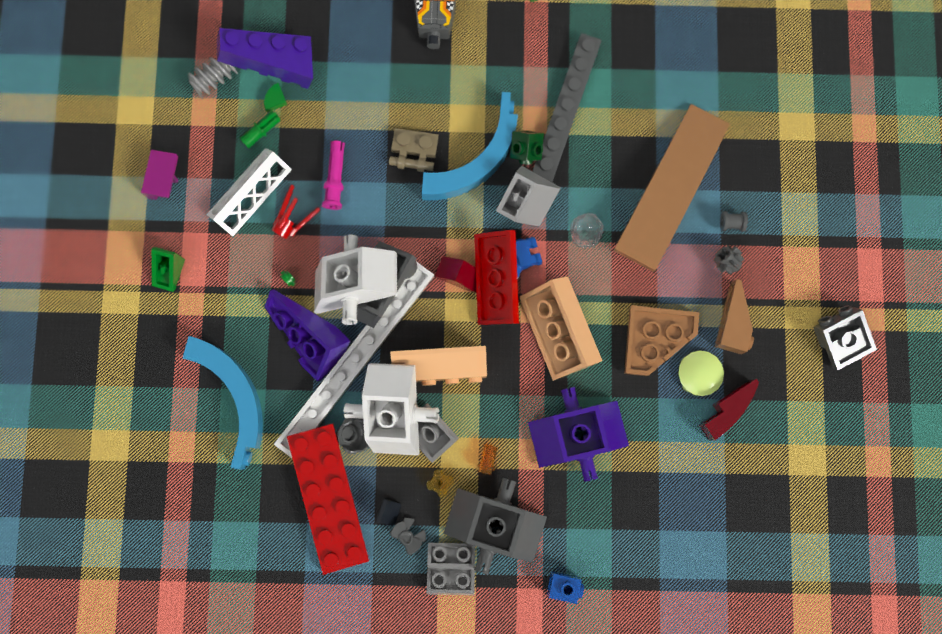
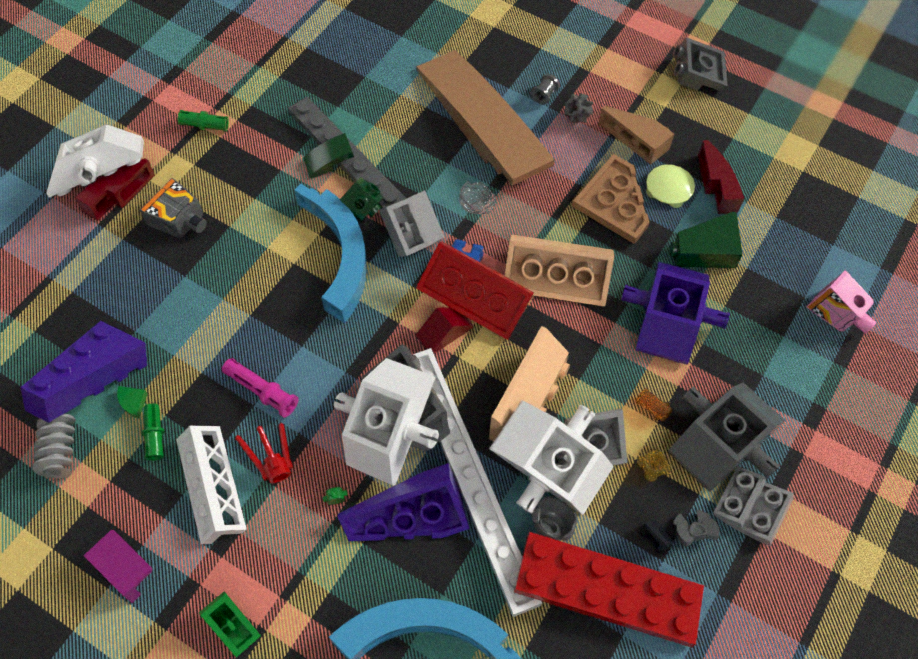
camera: 55 degrees left, 20 degrees down
(416, 144) = (284, 296): dark tan plate -> none
(554, 93) = (320, 159): none -> dark green slope
(565, 587) = (826, 404): blue brick -> none
(658, 432) = (709, 244): none -> dark green slope
(661, 564) = (843, 304): none -> bright pink torso

